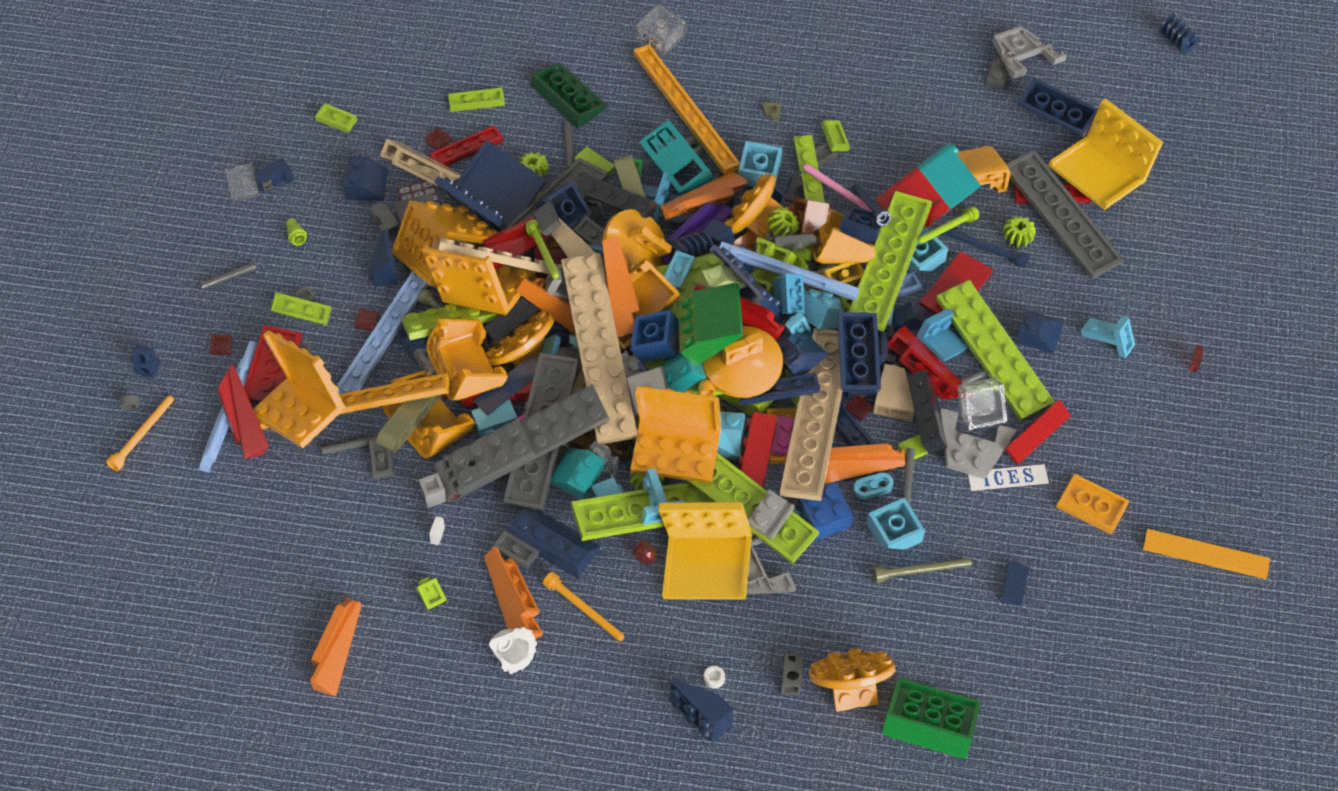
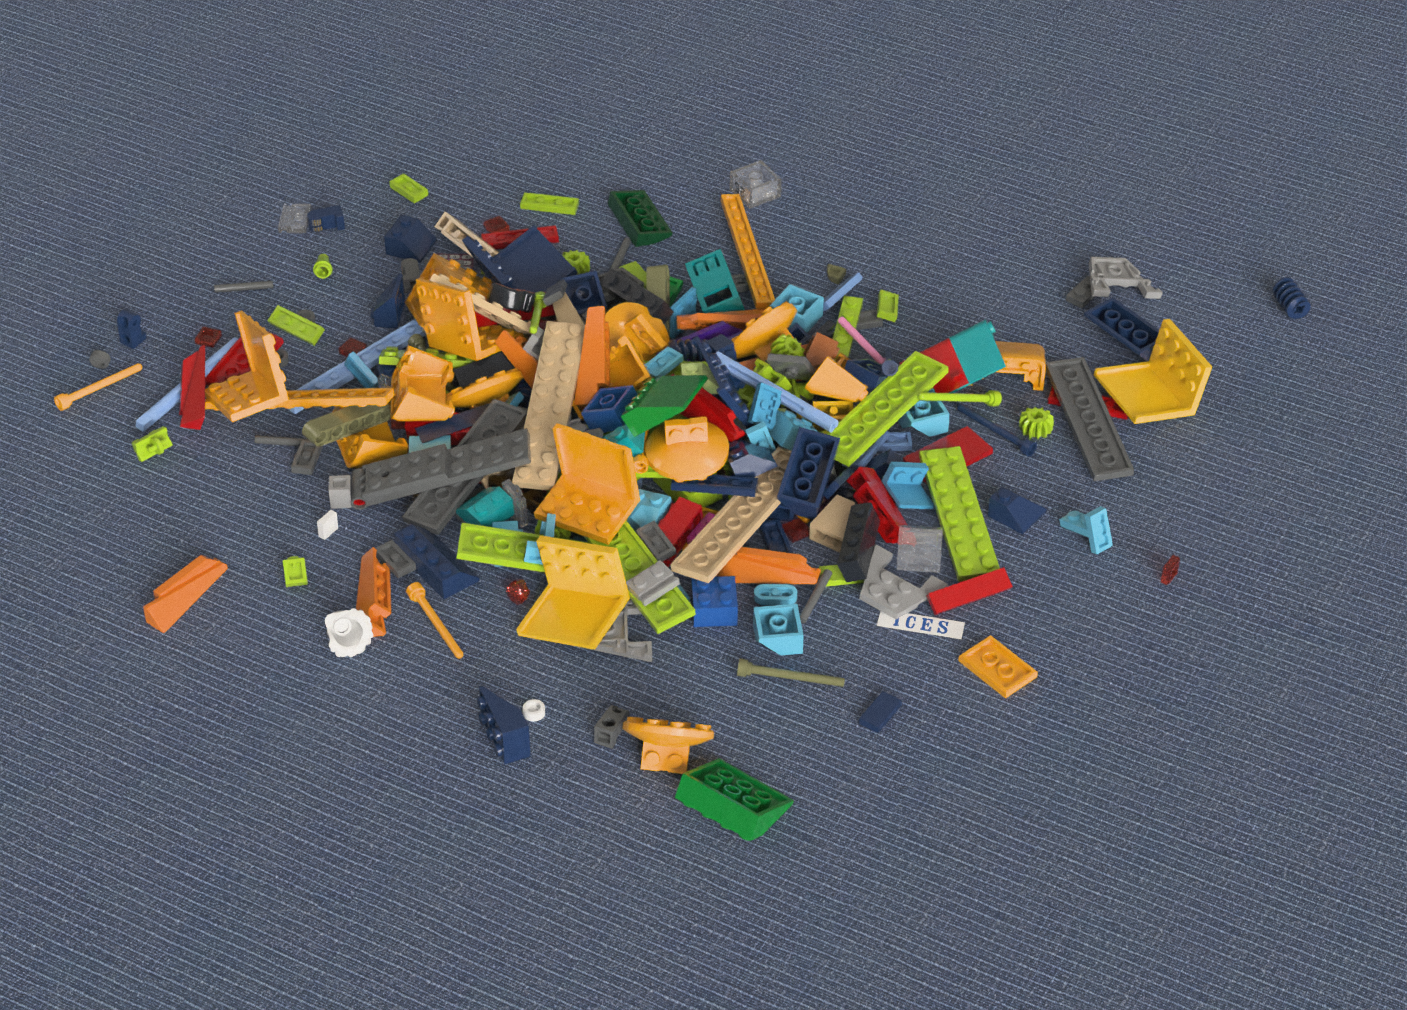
camera: 20 degrees right, 15 degrees down
(228, 487) = (152, 444): none -> lime hips
(392, 349) = (361, 371): none -> dark azure tile
(512, 240) = (511, 298): none -> black animal
(753, 467) = (656, 541): none -> dark grey plate
(788, 130) = (841, 290): none -> medium blue tile
(1206, 554) = (1098, 738): light orange tile -> none

